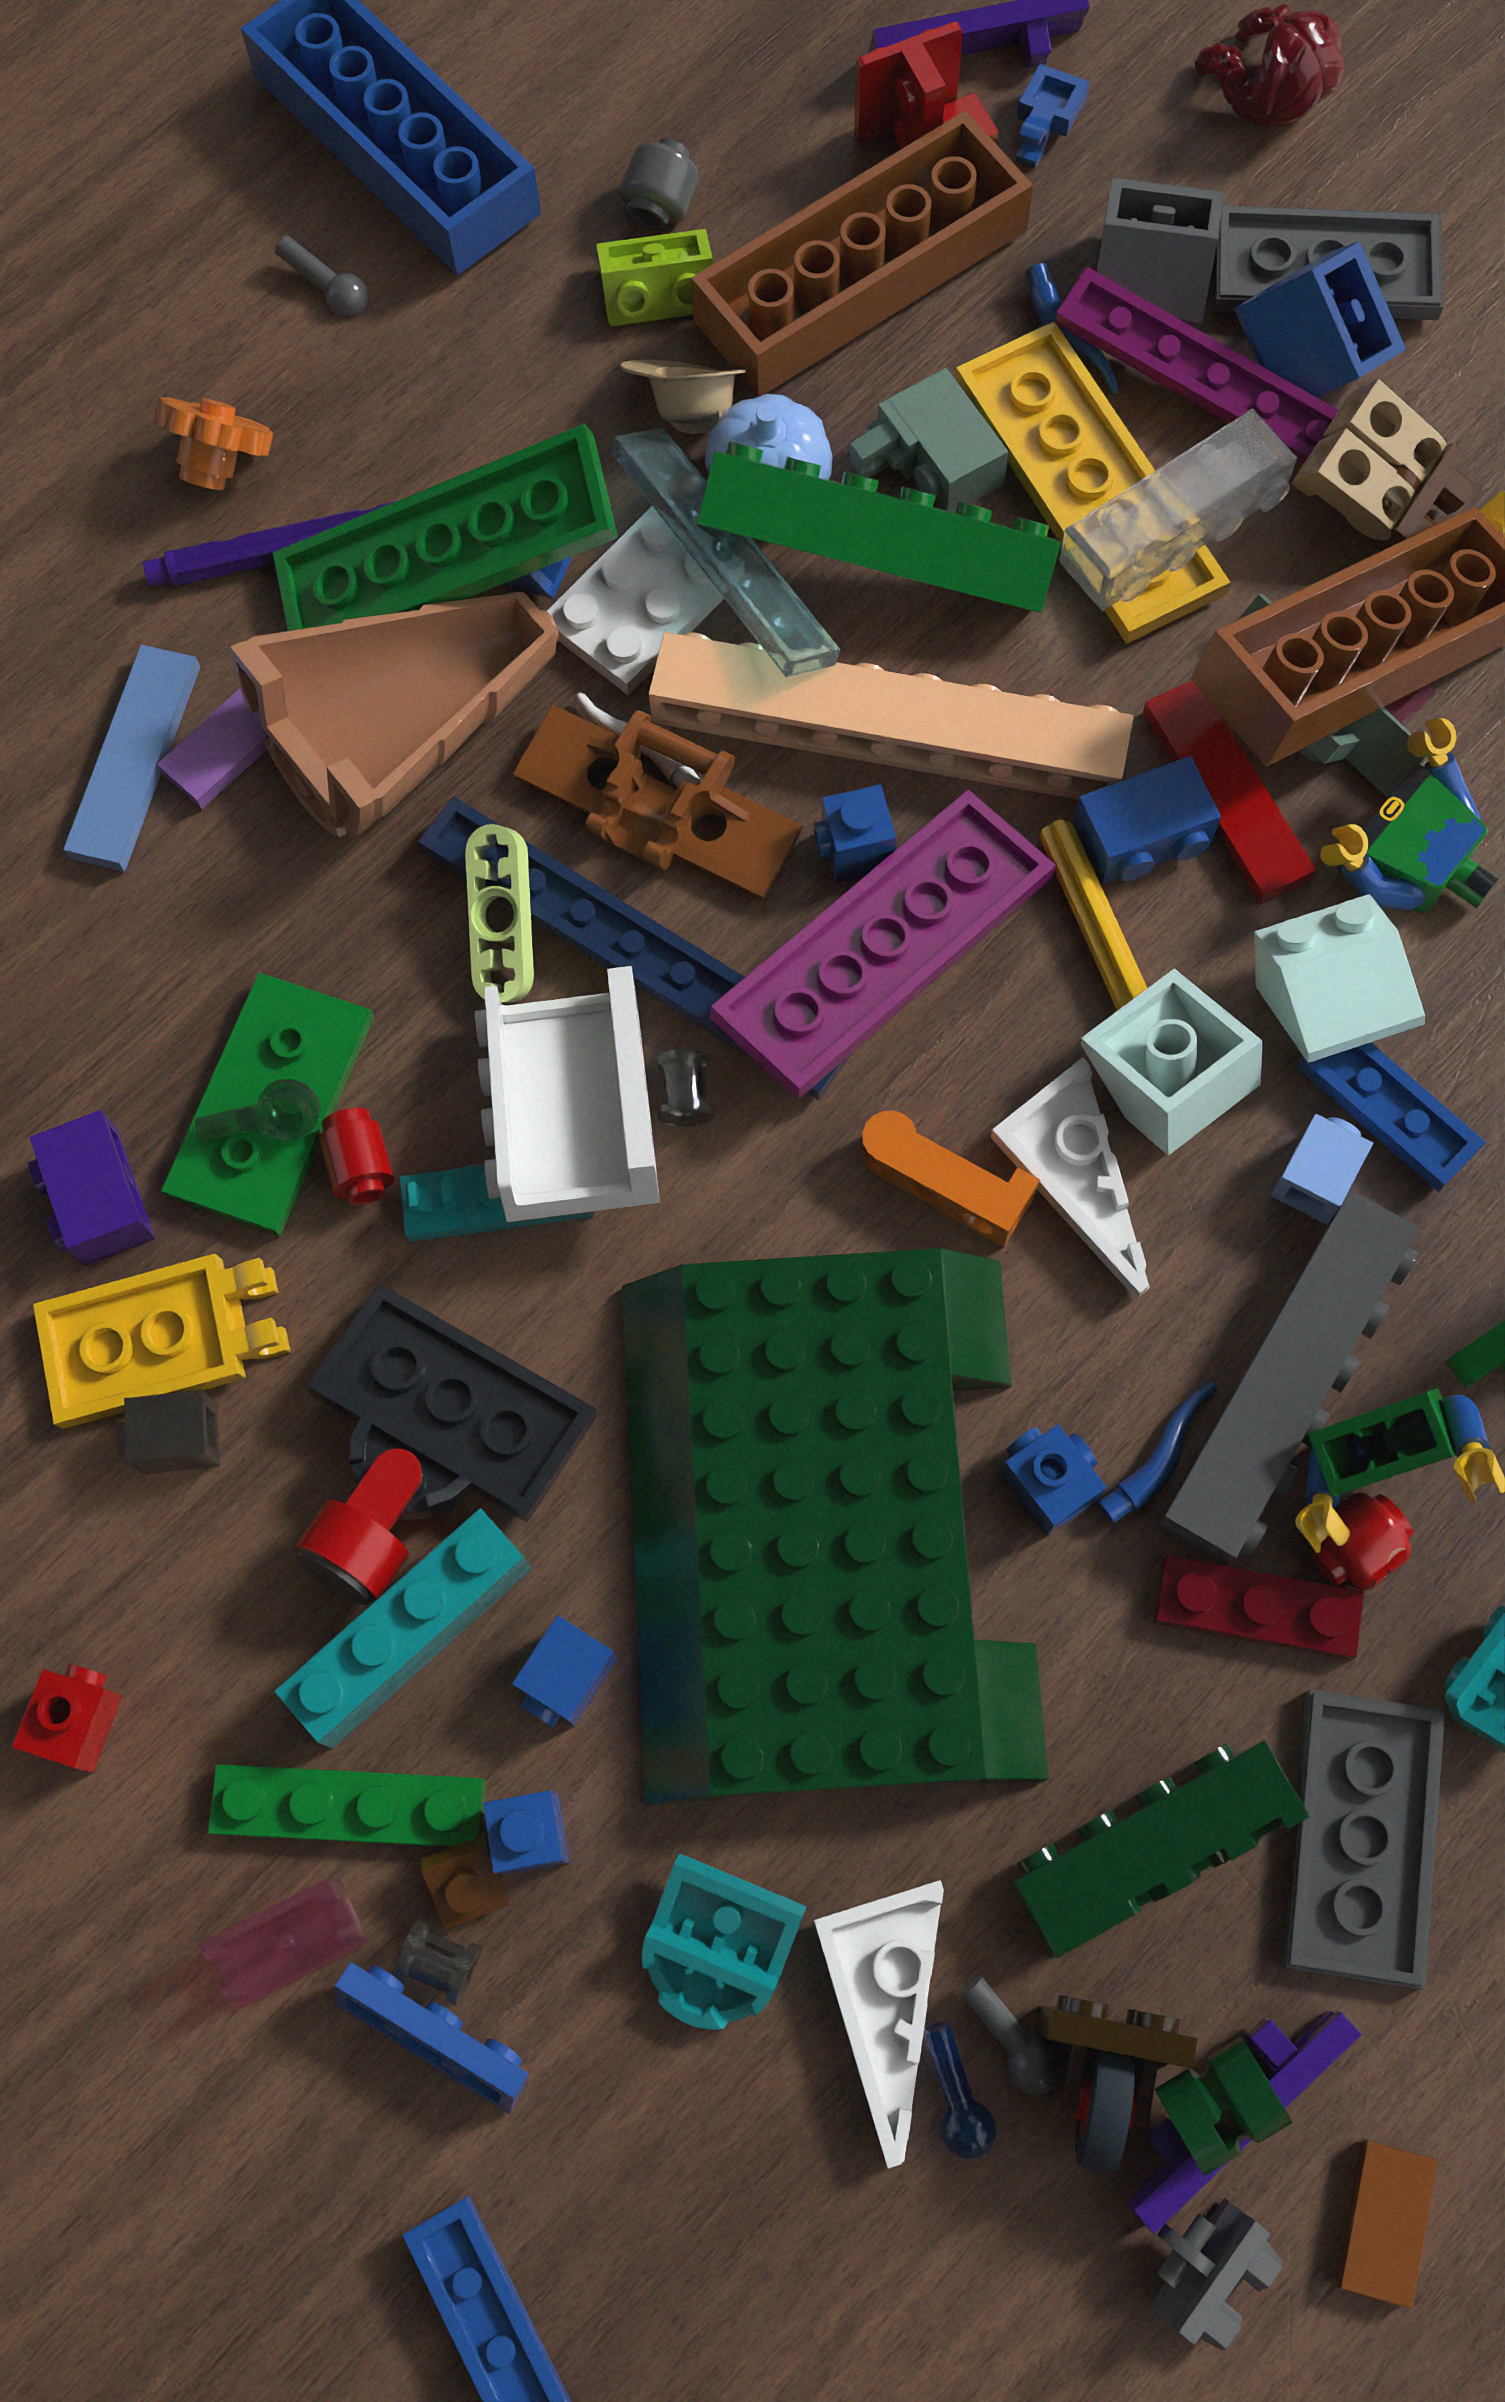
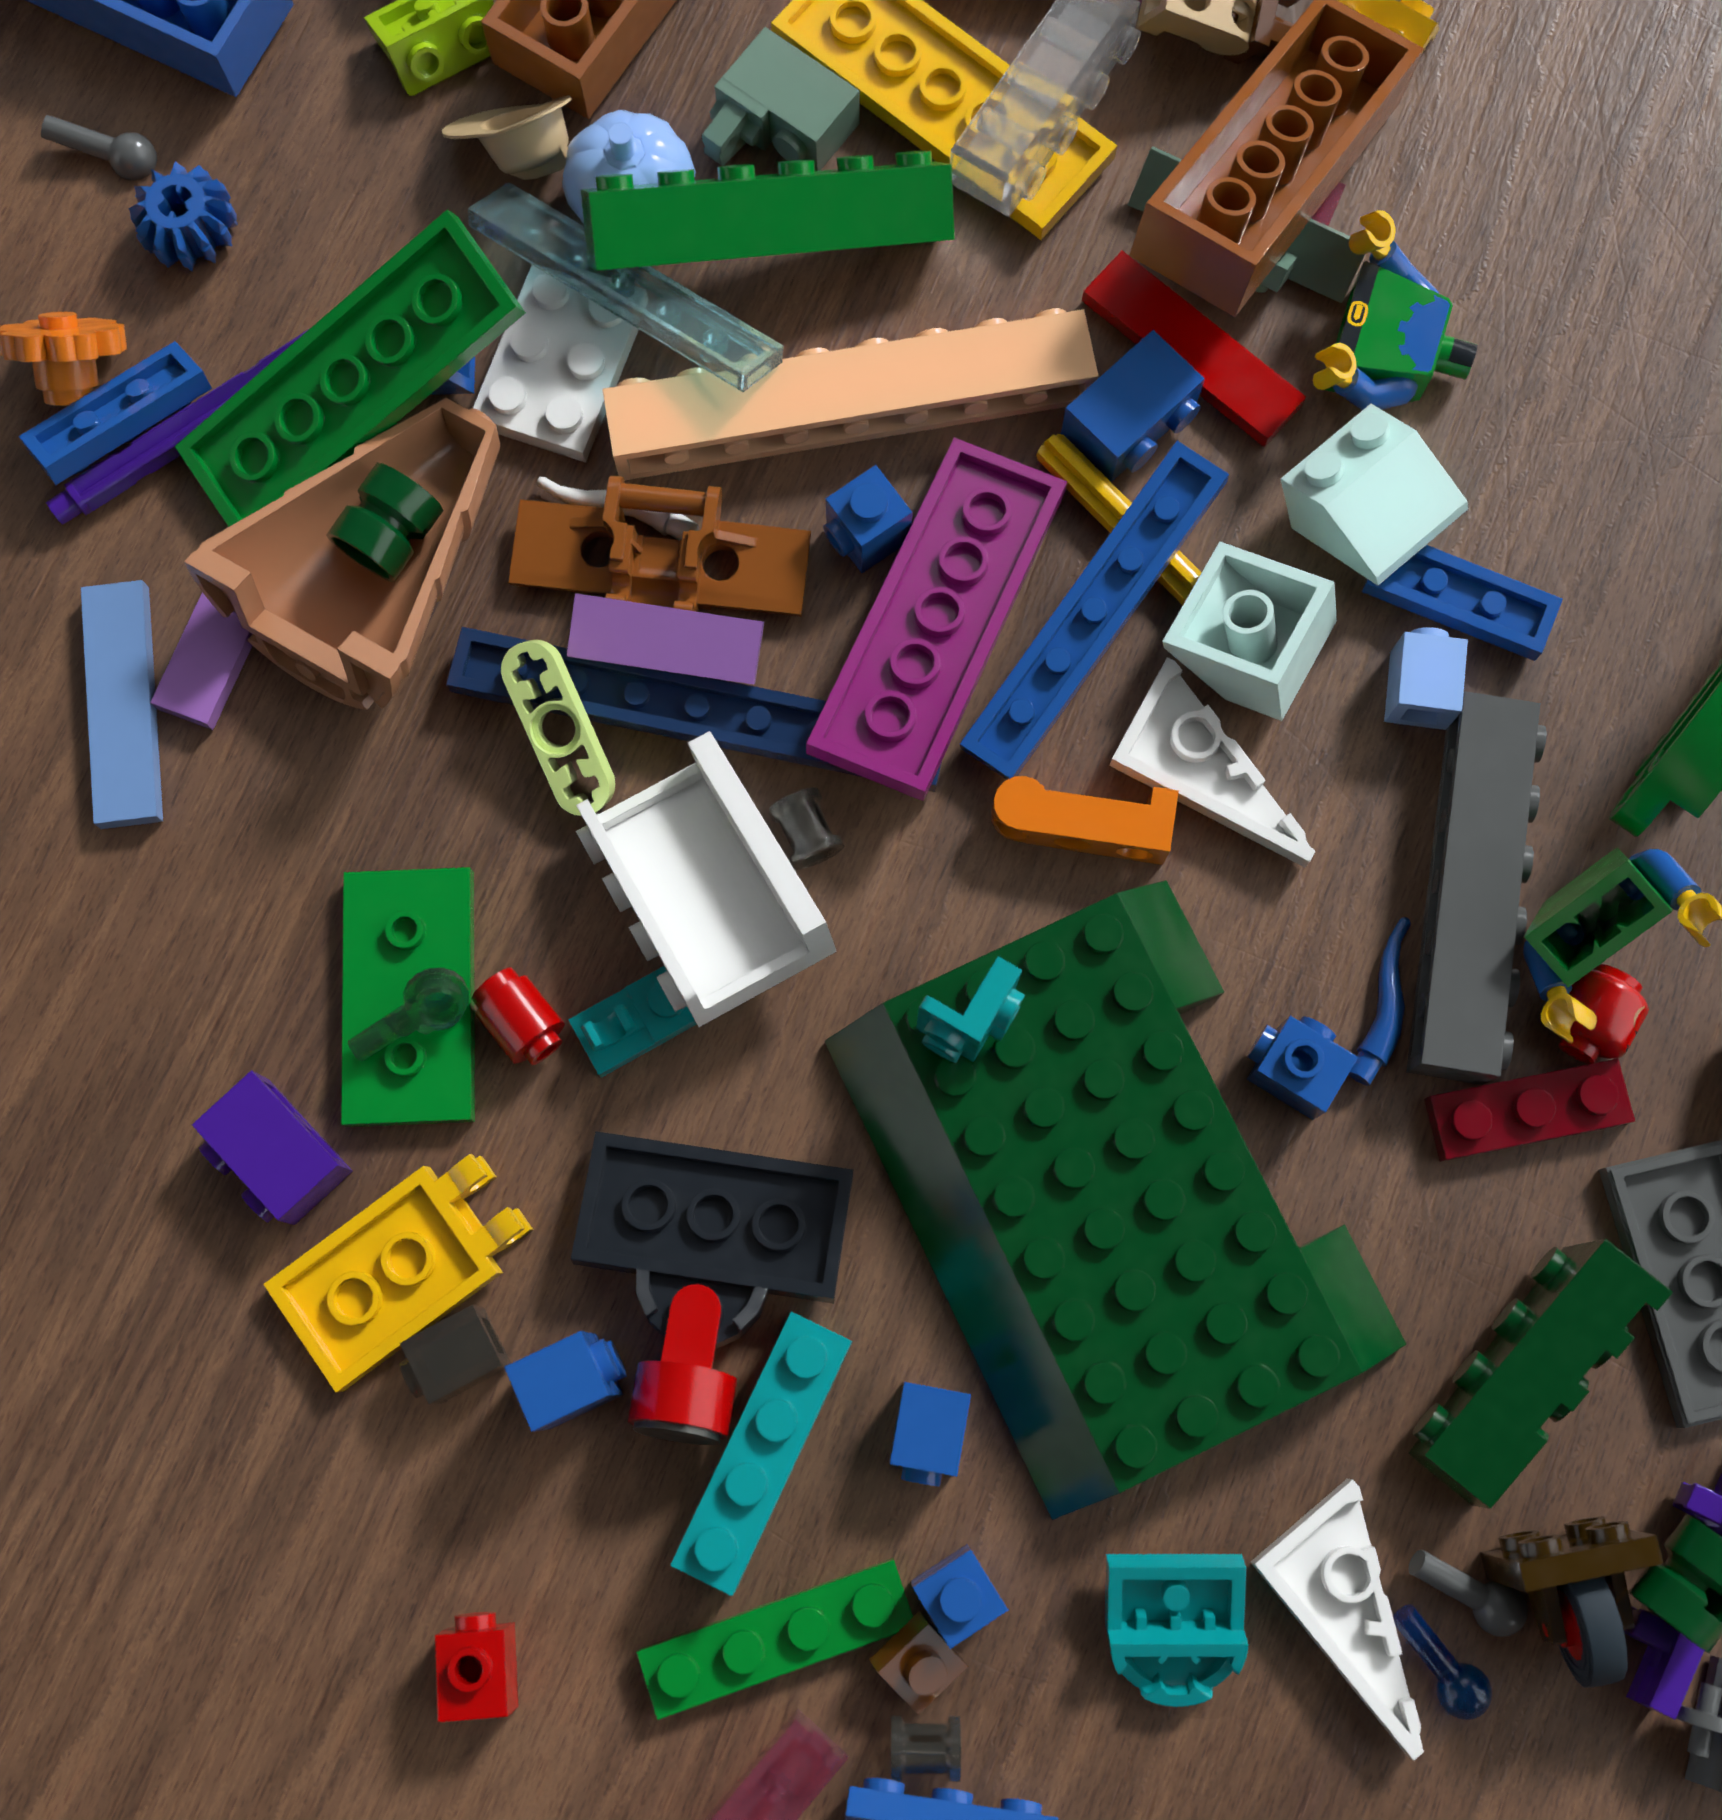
camera: 25 degrees left, 5 degrees up
(235, 506) = (115, 412): none -> blue plate
(255, 1489) = (566, 1379): none -> blue brick
(366, 360) = (183, 216): none -> blue gear
(423, 679) = (388, 517): none -> dark green wheel
(627, 870) = (665, 639): none -> medium lavender tile
(755, 1303) = (987, 1014): none -> teal bracket
(1031, 989) = (1094, 611): none -> blue plate

